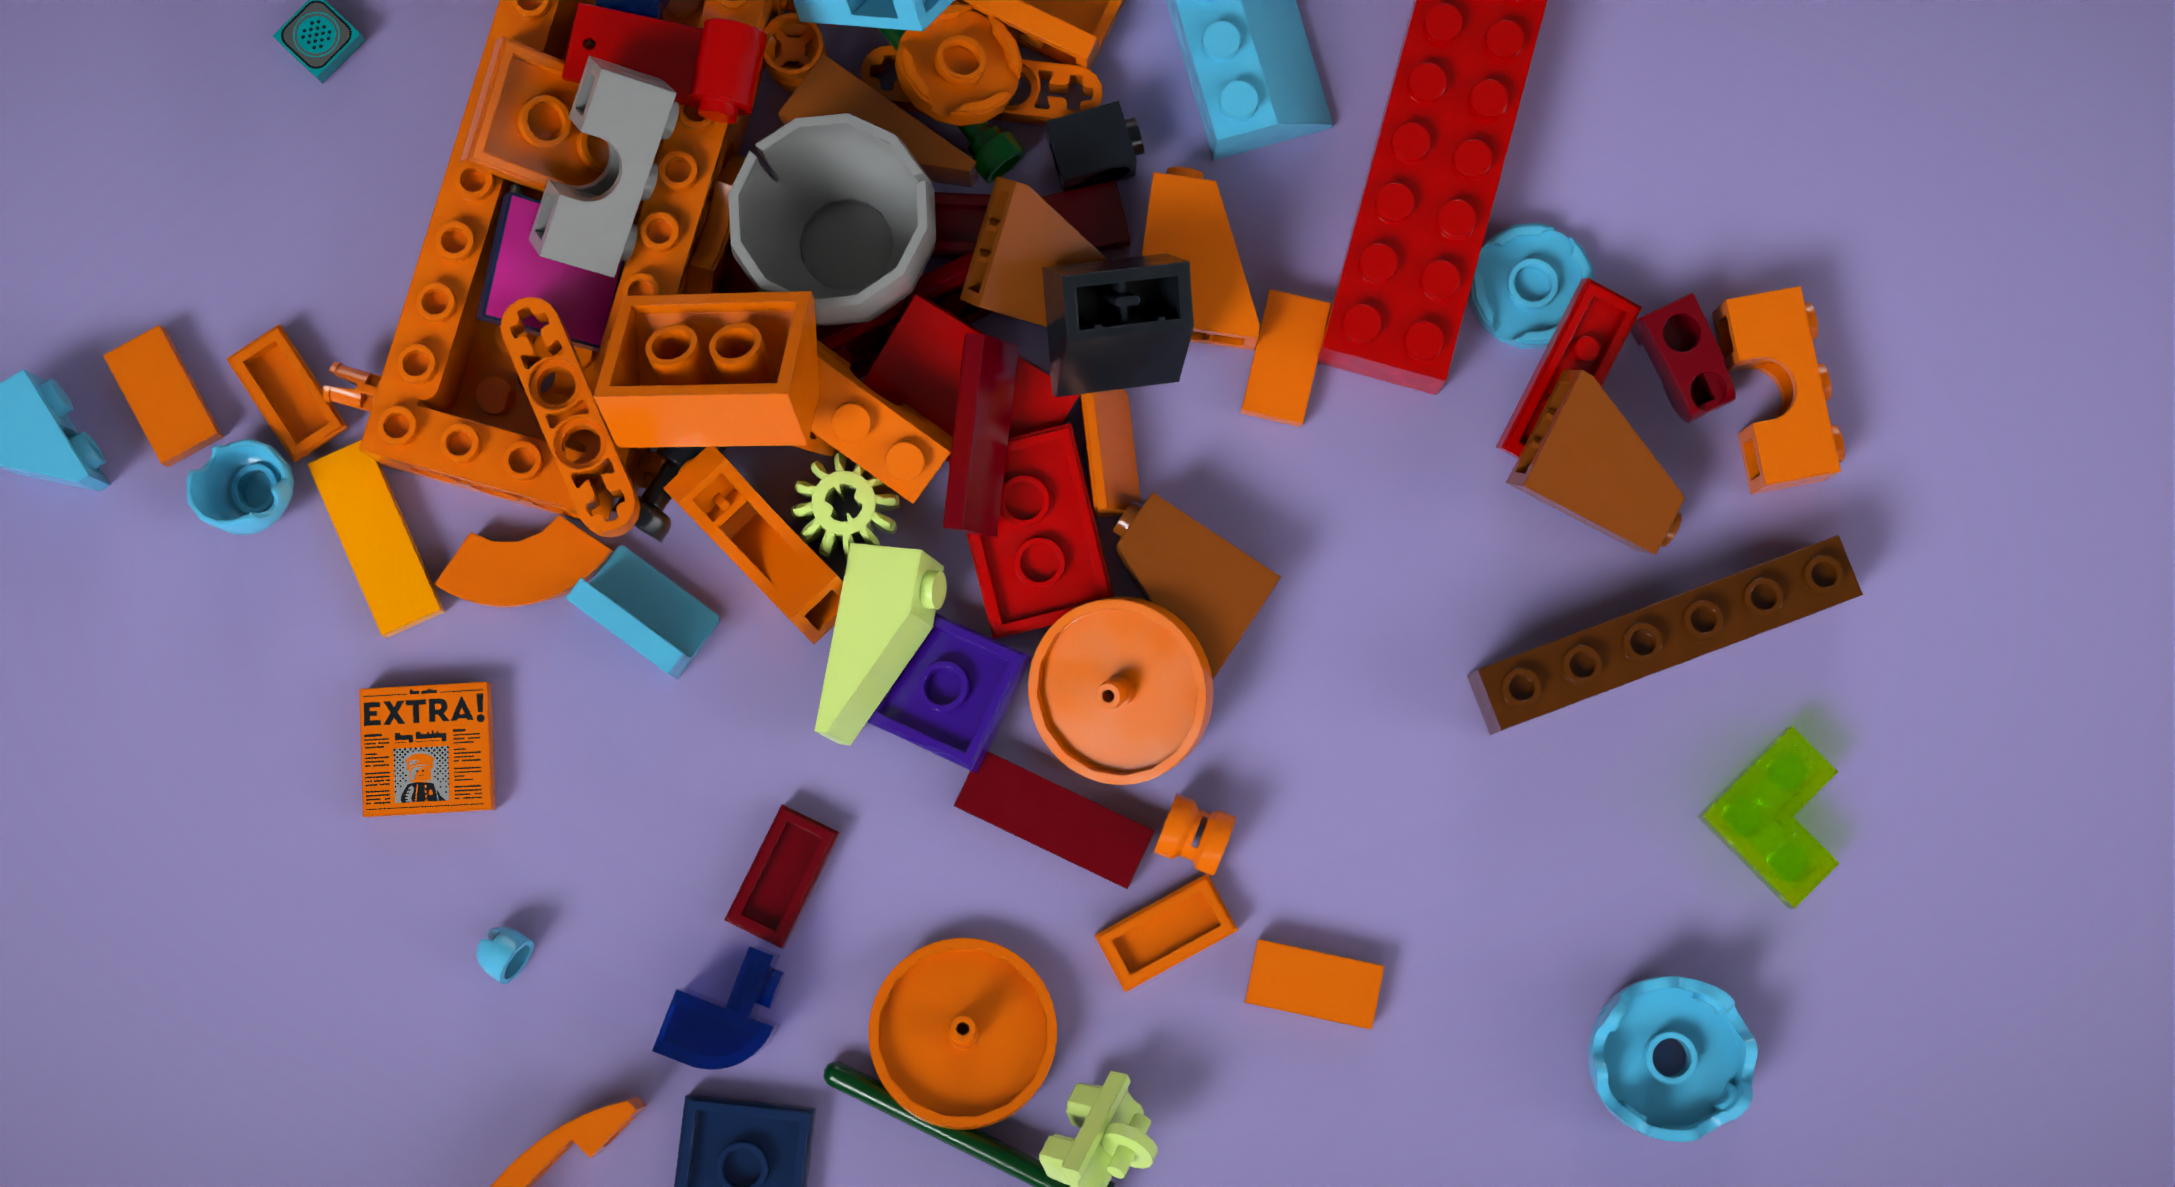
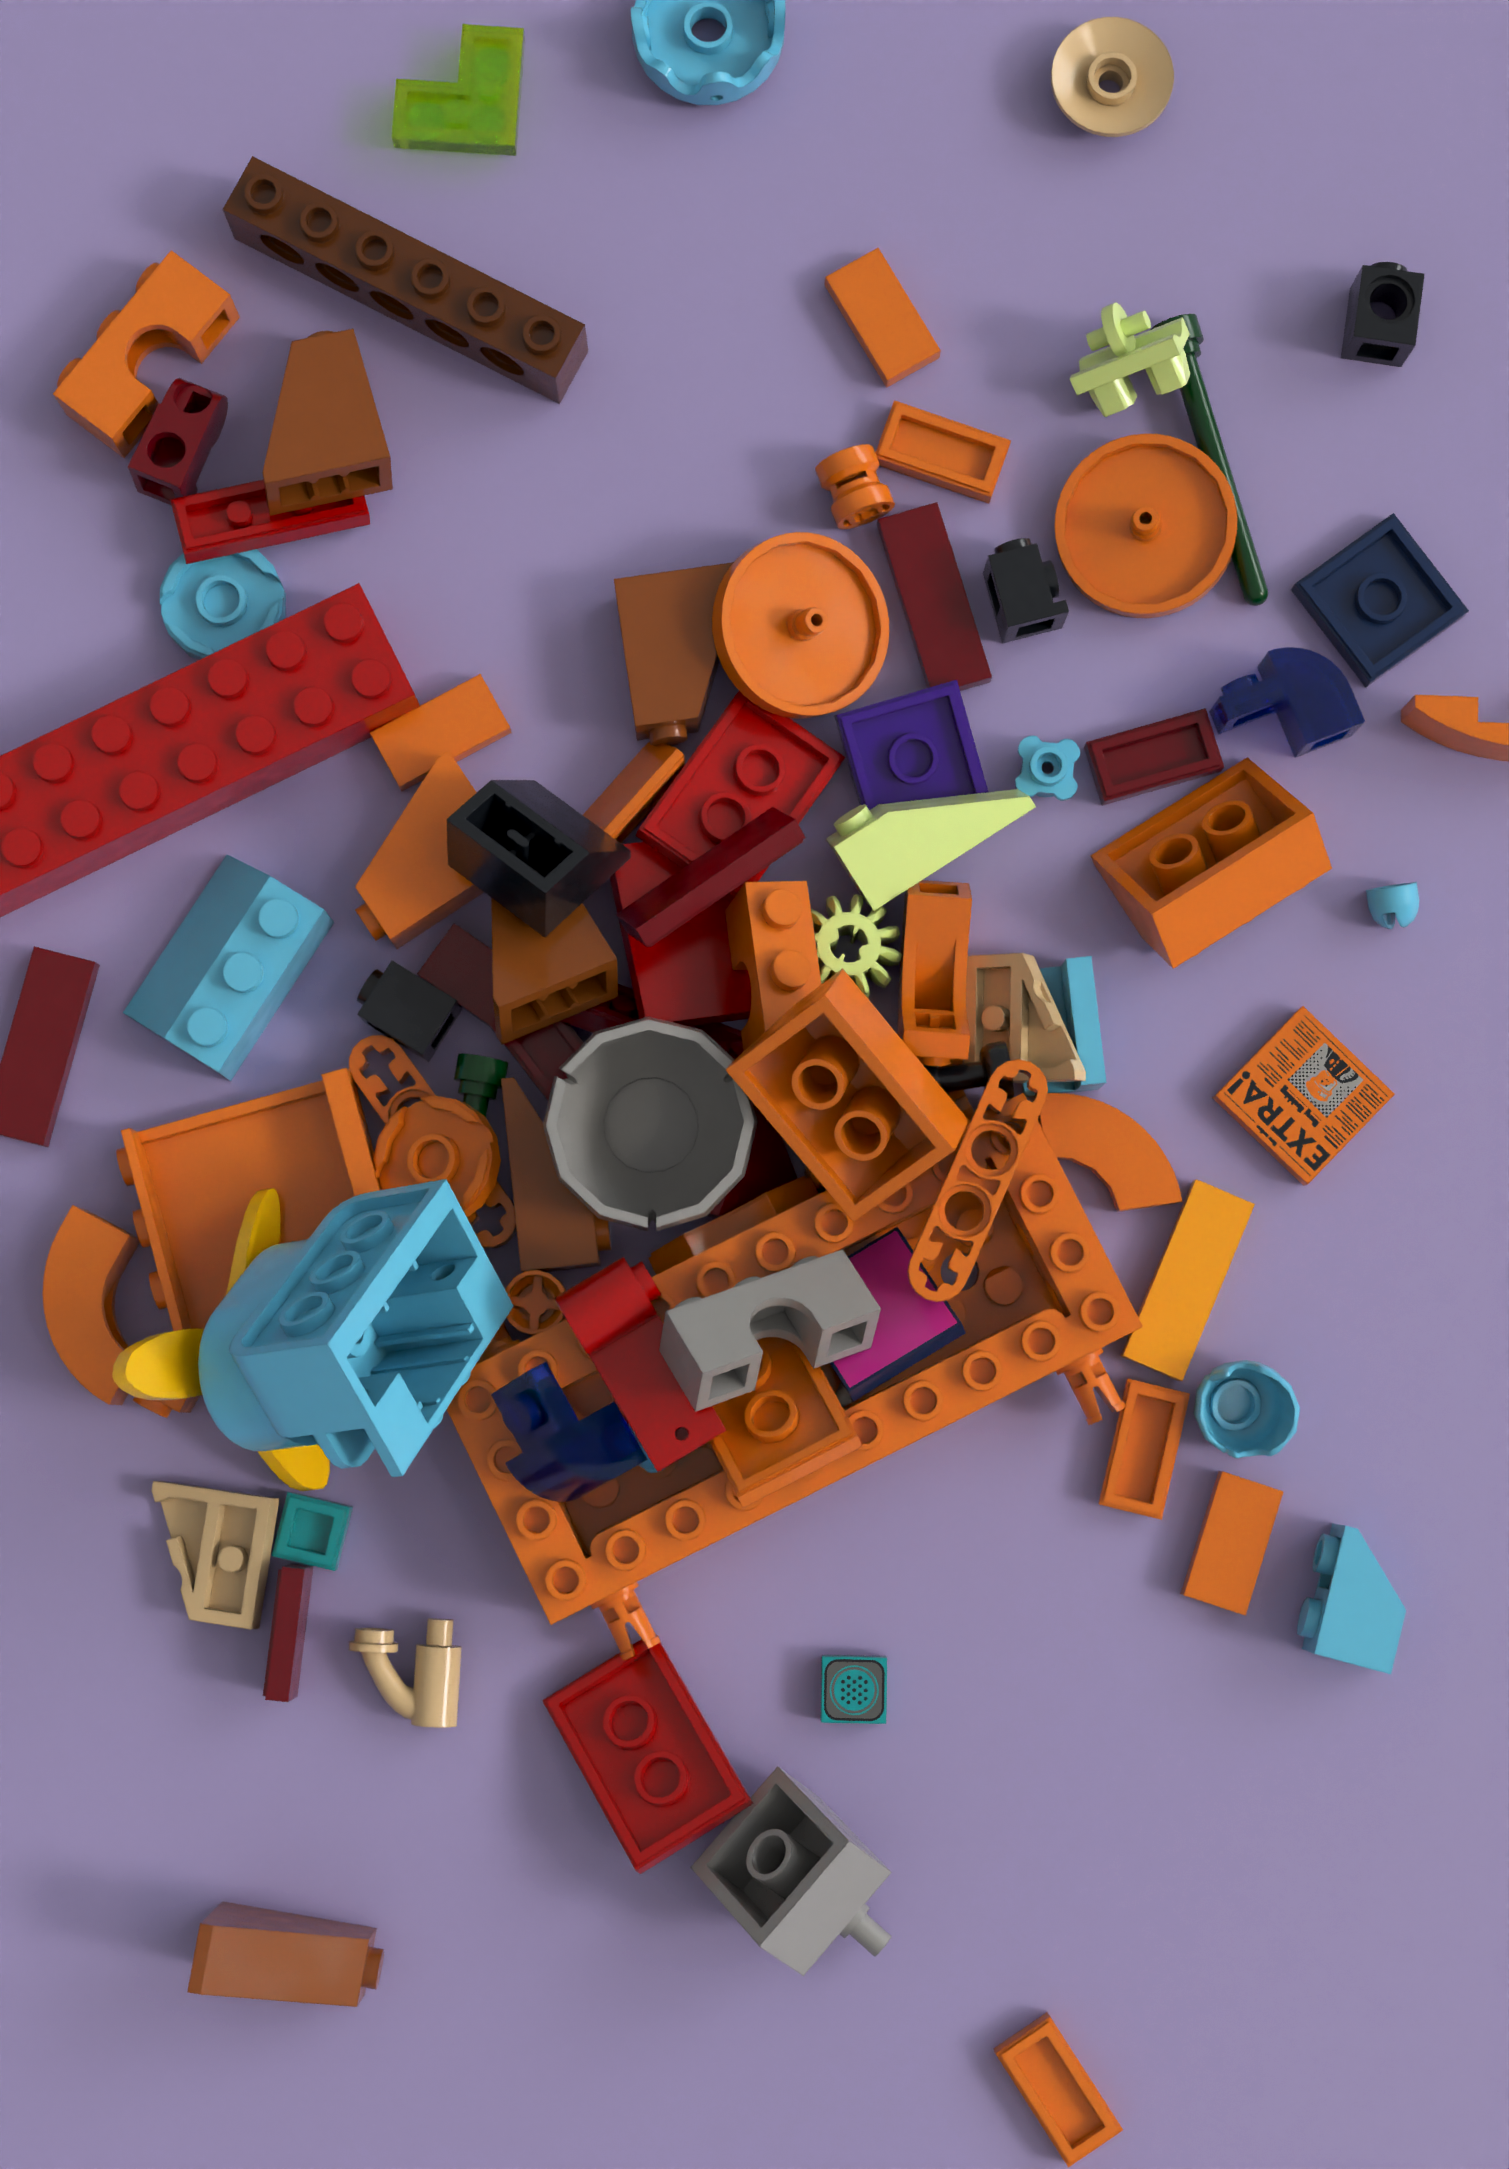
camera: 135 degrees left, 0 degrees up
(660, 840) = (1213, 861): none -> orange slope
(674, 579) = (1013, 1005): none -> tan wing
(864, 784) = (1036, 782): none -> medium azure plate
(998, 890) = (1023, 591): none -> black brick

